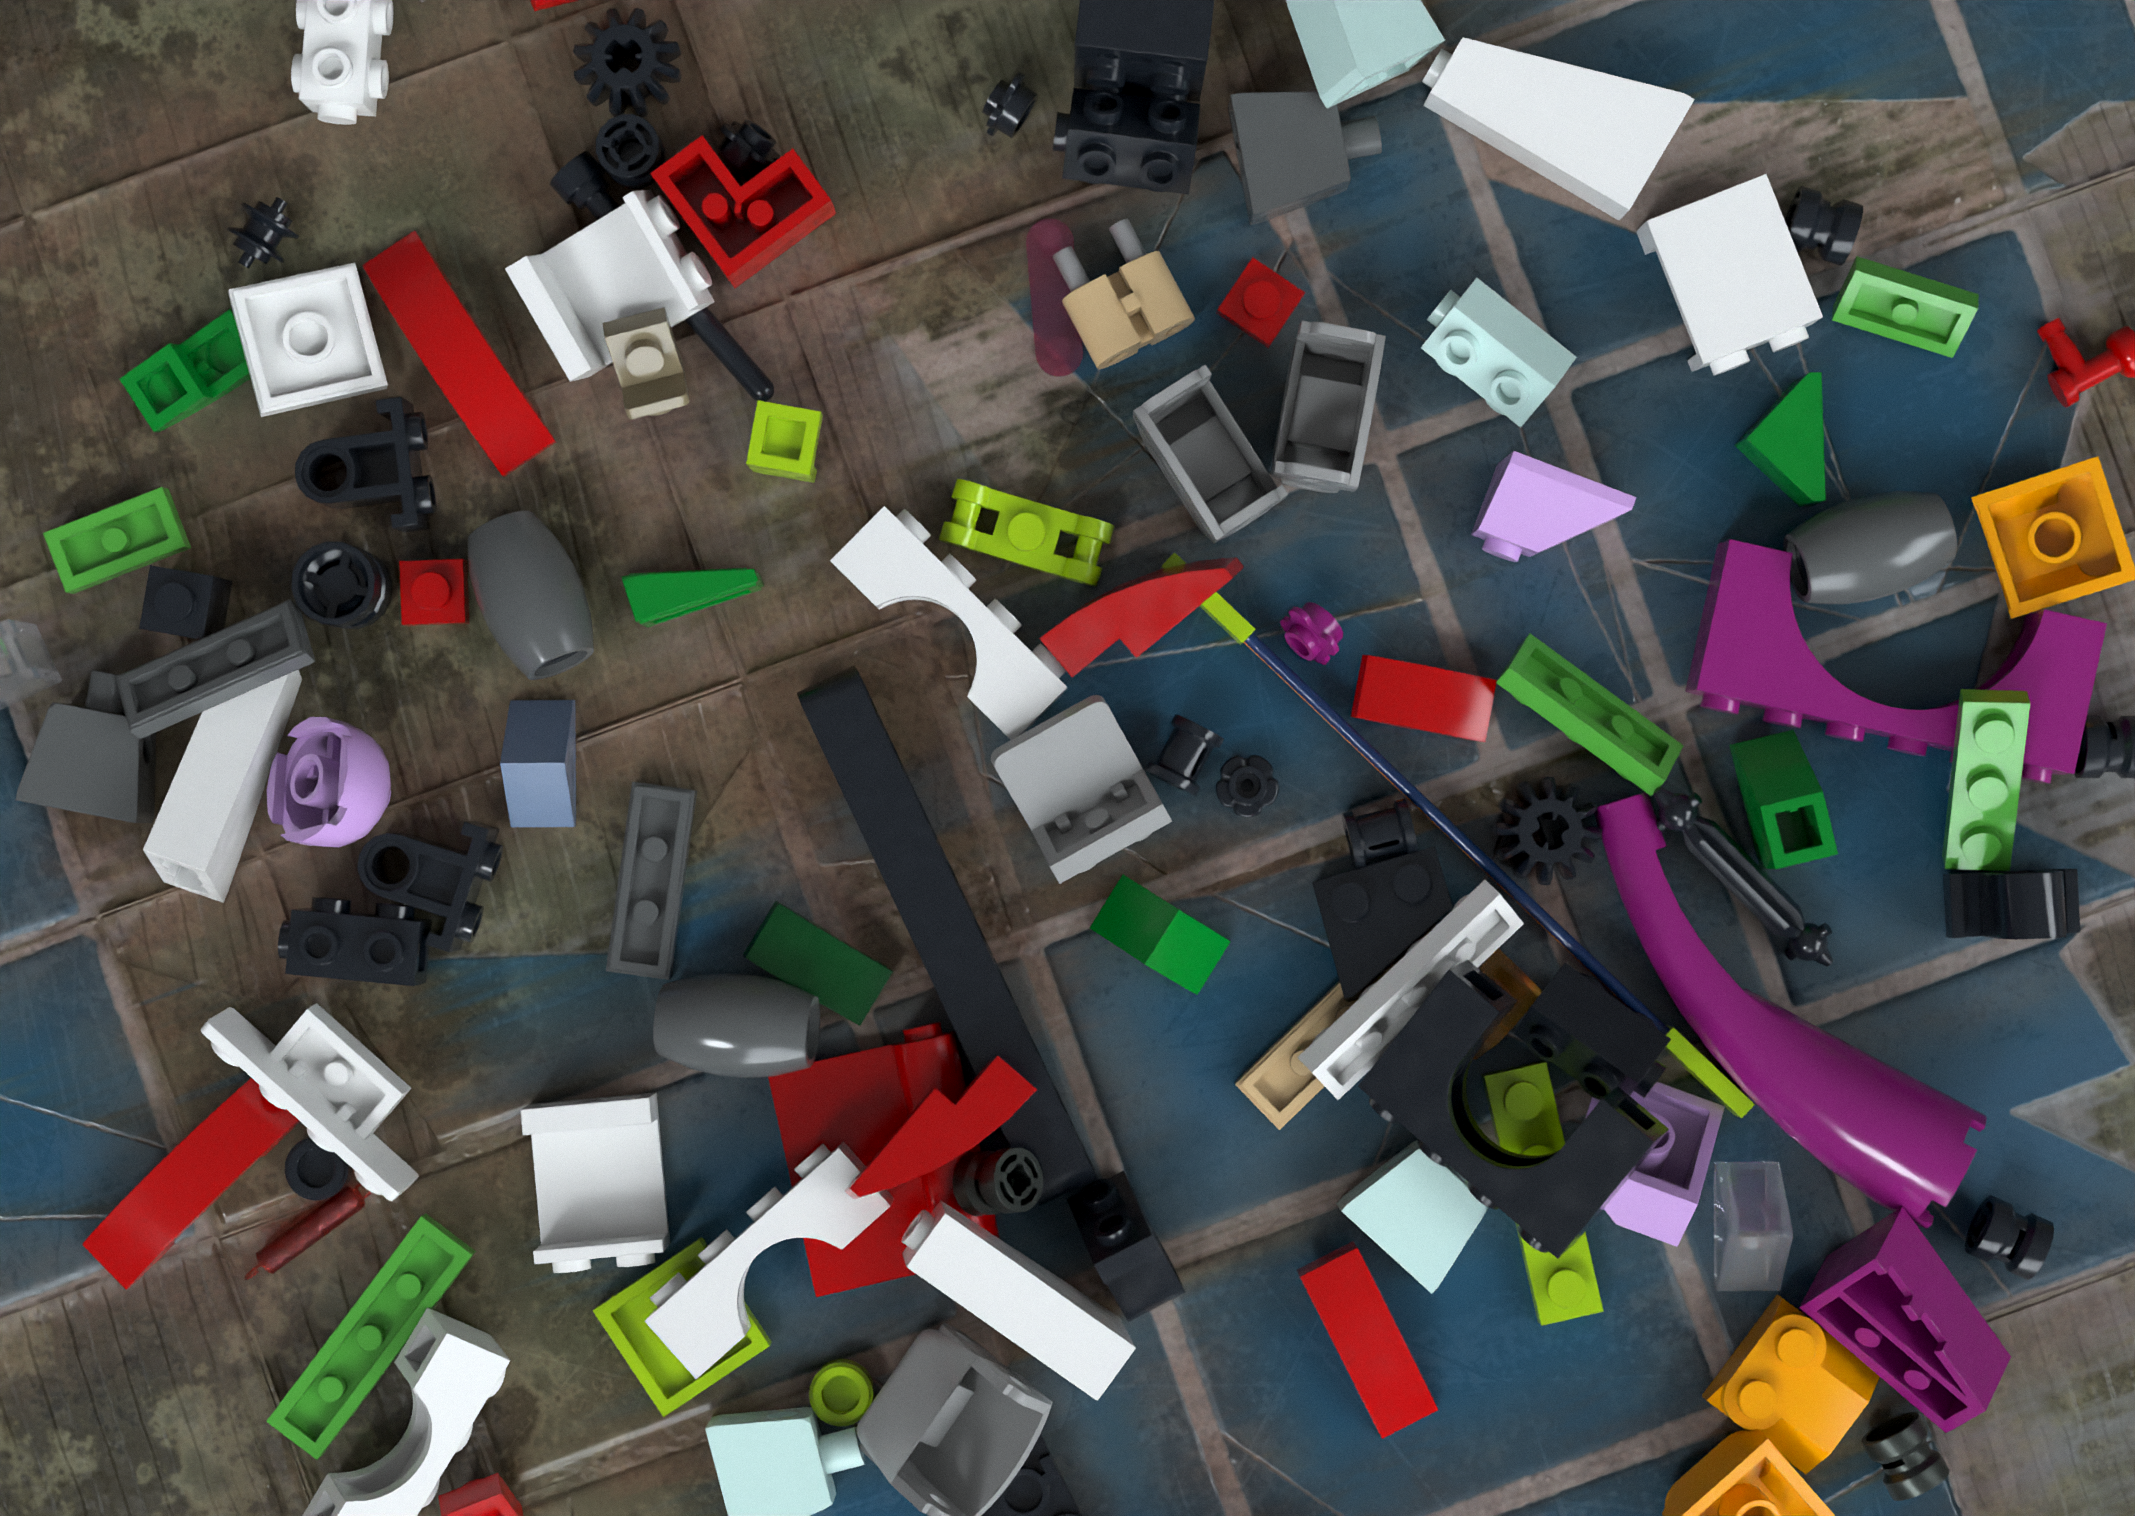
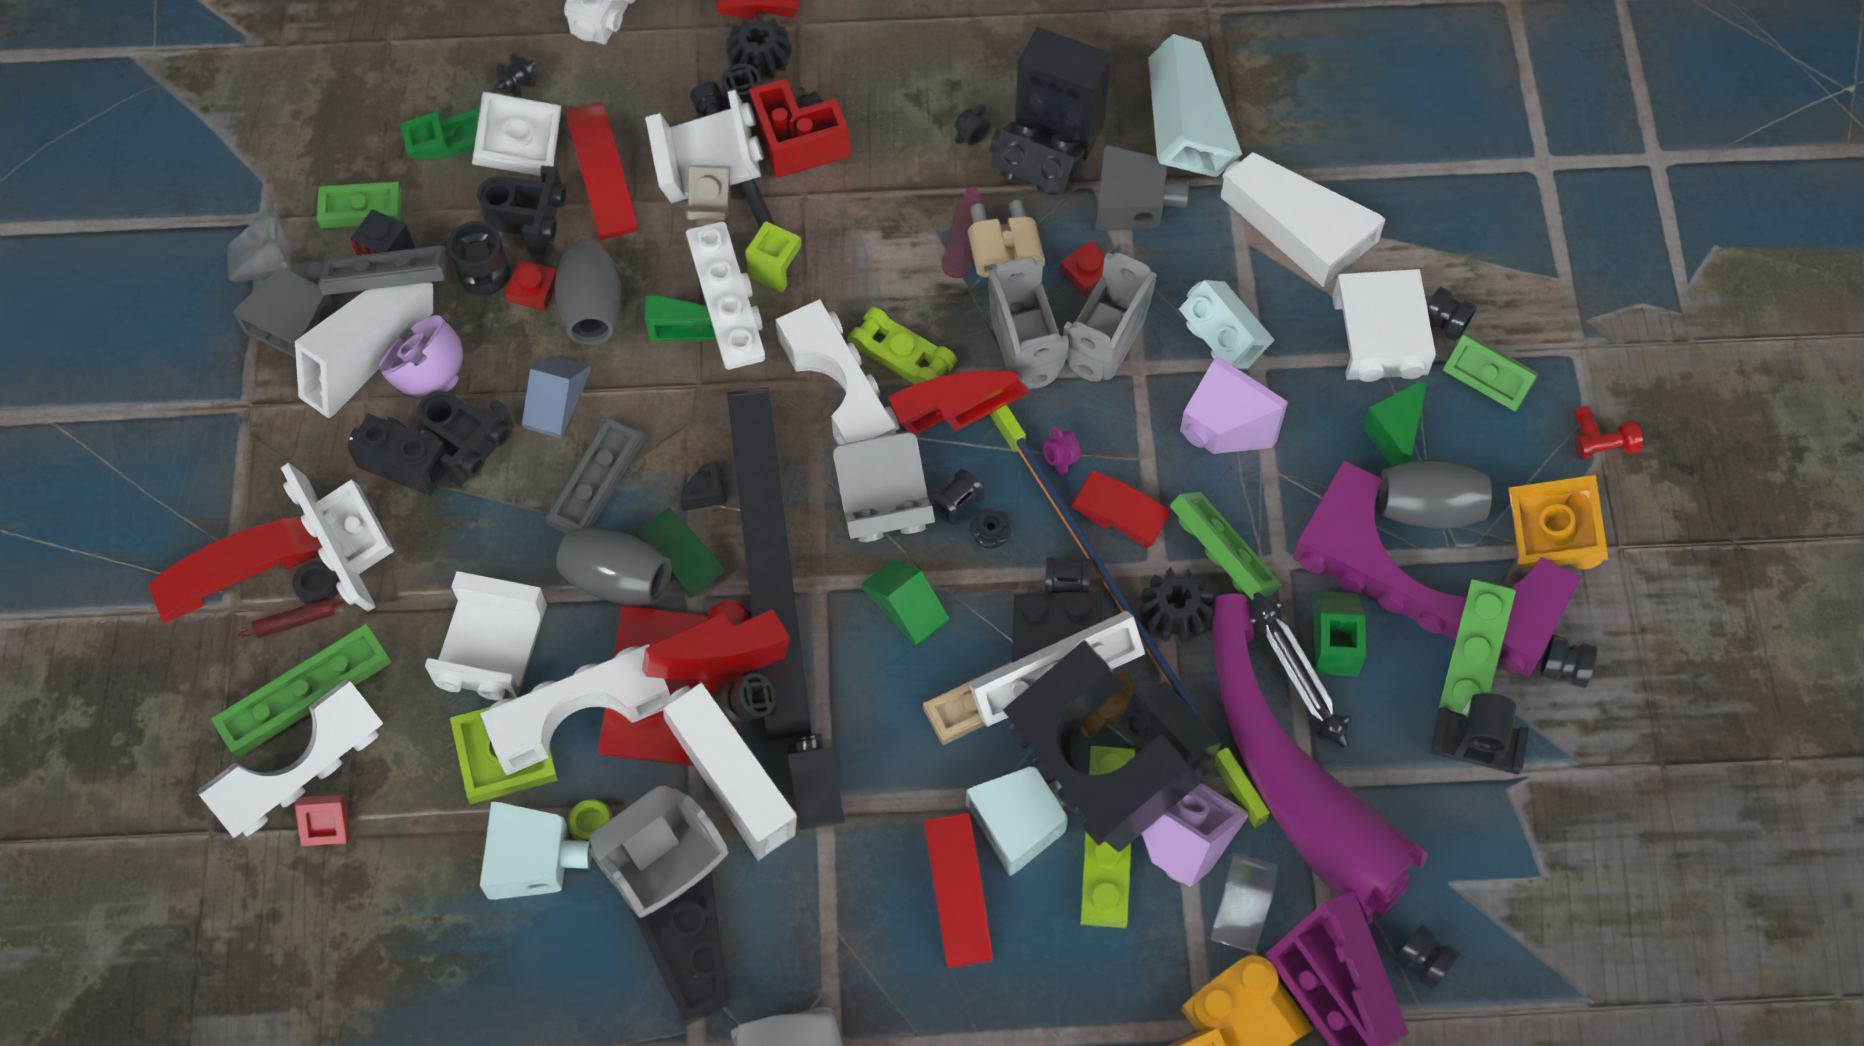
camera: 20 degrees right, 25 degrees down
(746, 552) = (726, 296): none -> white bracket
(813, 846) = (703, 488): none -> black tile

